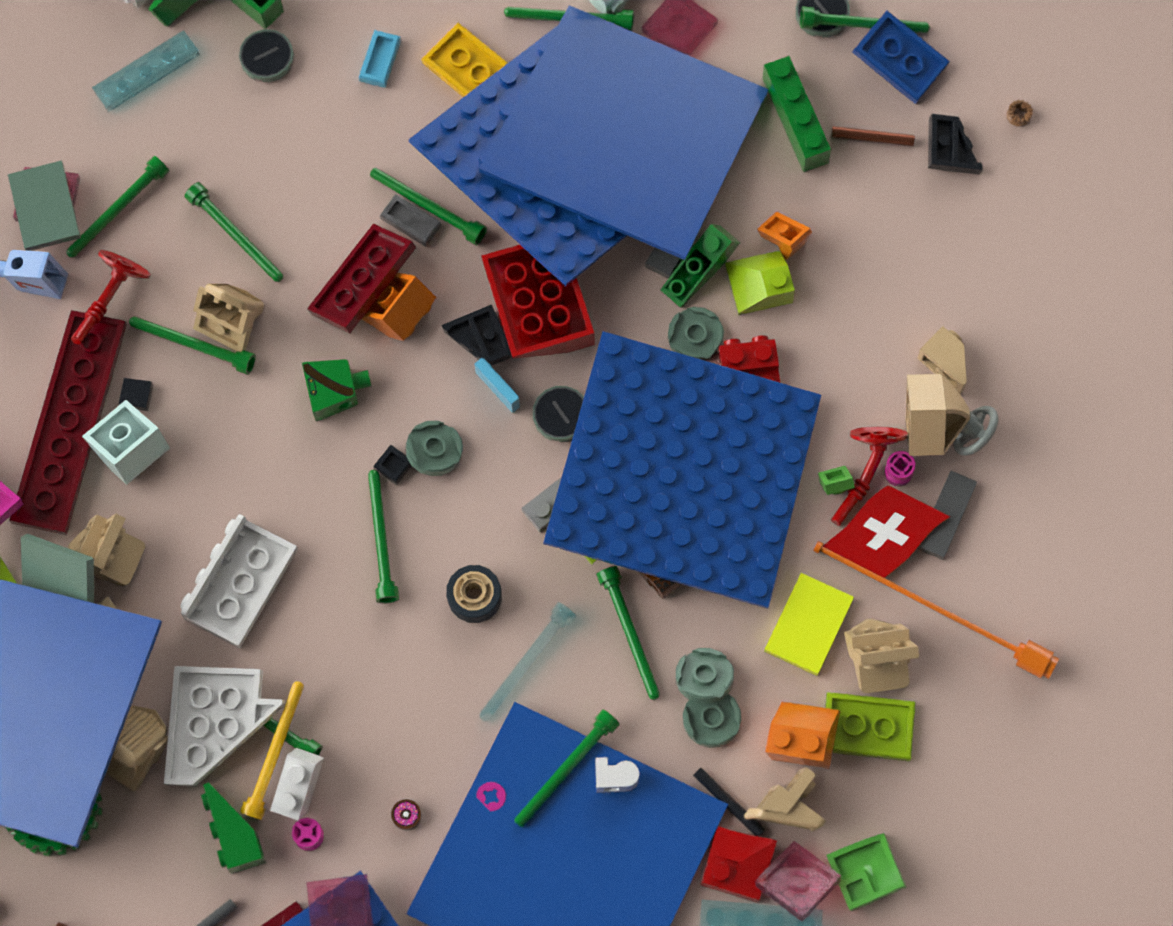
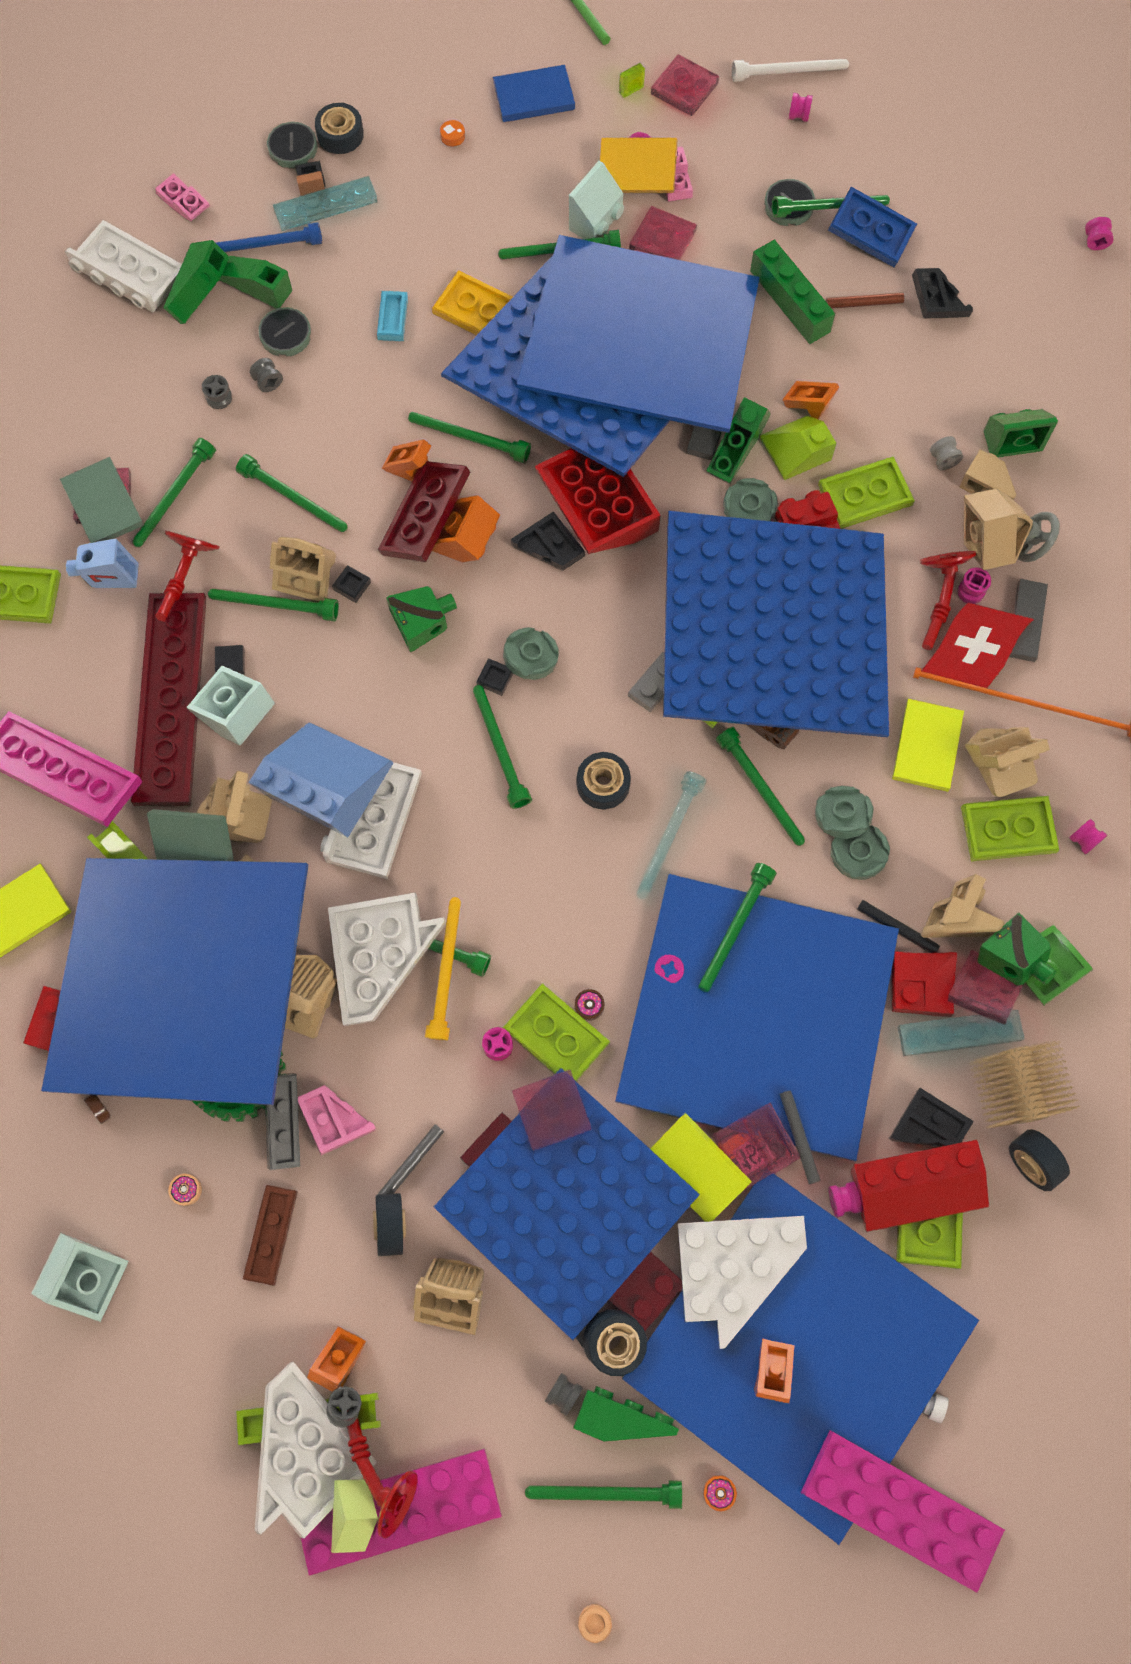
camera: 15 degrees left, 0 degrees up
(86, 867) = (283, 1125): none -> dark grey tile
(133, 873) = (331, 1120): none -> bright pink wing
(145, 71) = (172, 366): clear light blue plate -> none
(181, 102) = (212, 386): none -> dark grey wheel
(197, 534) = (322, 777): none -> medium blue slope
(236, 100) = (266, 375): none -> dark grey wheel
(238, 840) = (429, 1062): green slope -> none
(273, 338) = (351, 584): none -> black tile
(297, 784) = (477, 996): white brick -> none
(357, 219) = (407, 458): none -> orange slope
(367, 836) = (556, 1033): none -> lime tile
(410, 220) = (456, 451): flat silver tile -> none
(497, 385) = (577, 583): medium azure tile -> none
(557, 412) = (642, 599): black tile -> none
(617, 777) = (786, 925): white leg -> none
(802, 735) = (954, 848): orange slope -> none
(818, 346) = (867, 492): none -> lime tile
(833, 853) = (1017, 953): none -> green torso
(836, 480) = (918, 608): bright green plate -> none
(910, 321) = (946, 453): none -> light grey wheel
(942, 752) = (1088, 836): none -> dark pink wheel
(990, 313) = (1019, 432): none -> green slope
(1024, 107) = (992, 251): medium nougat bush -> none
(1140, 110) = (1099, 233): none -> dark pink wheel

